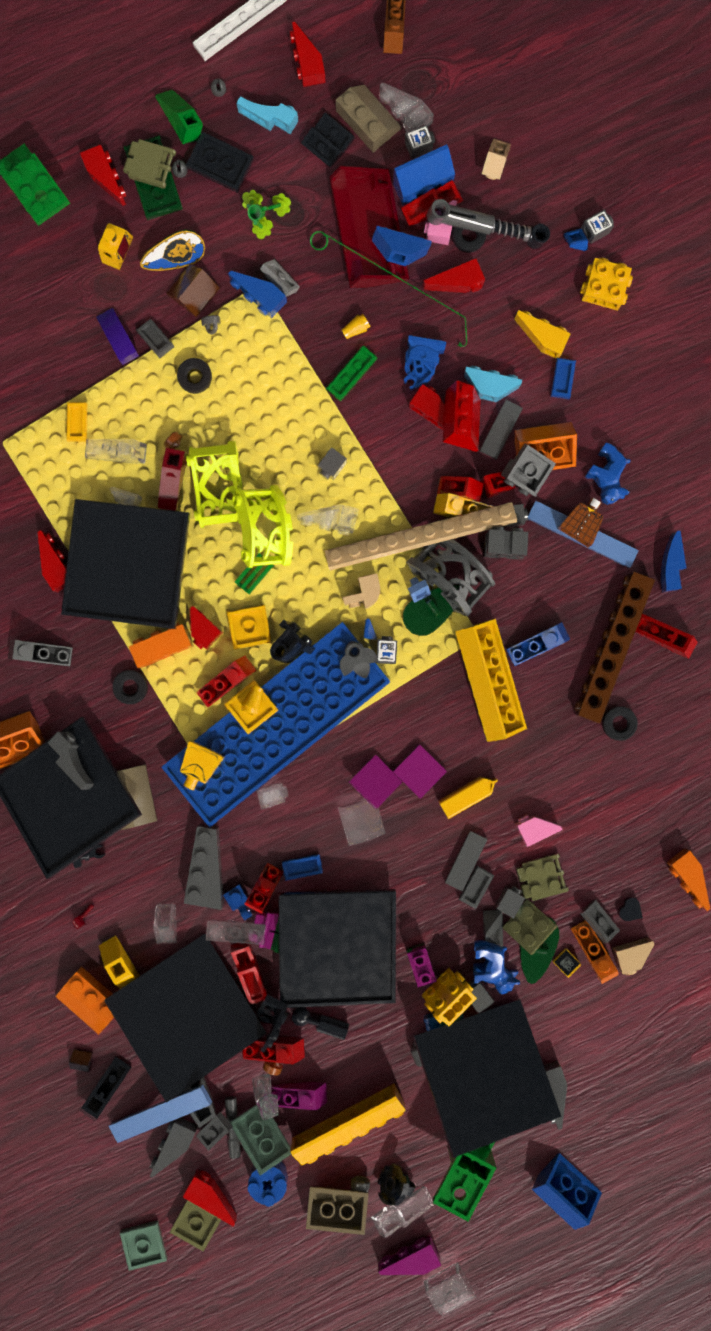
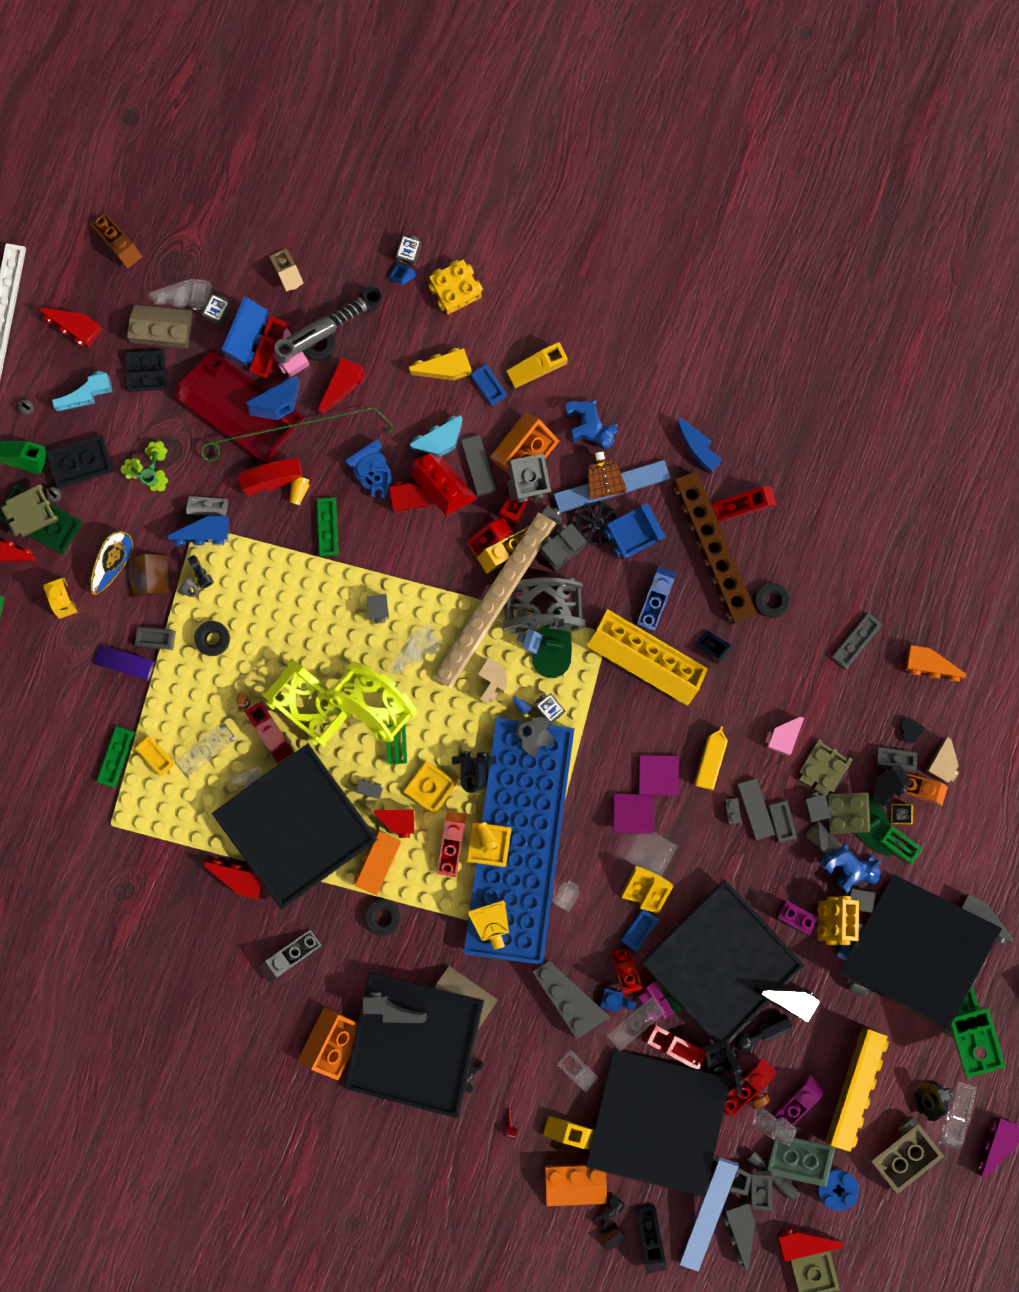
camera: 45 degrees left, 5 degrees down
(50, 397) = (115, 757): none -> green tile
(103, 1042) = (615, 1205): none -> black piece
(204, 588) = (371, 790): none -> dark grey piece
(227, 328) = (204, 580): none -> black piece
(334, 844) = (647, 889): none -> yellow slope
(344, 297) = (270, 476): none -> red slope
(363, 1019) = (792, 999): none -> slope
(448, 846) = (732, 811): none -> dark grey piece
(541, 968) = (886, 835): none -> green tile
(546, 717) = (713, 646): none -> black slope
(547, 550) = (596, 523): none -> black wheel
(567, 581) = (634, 532): none -> blue panel
(578, 935) = (889, 784): none -> black slope
(613, 396) = (538, 365): none -> yellow slope
(652, 809) = (856, 641): none -> dark grey tile

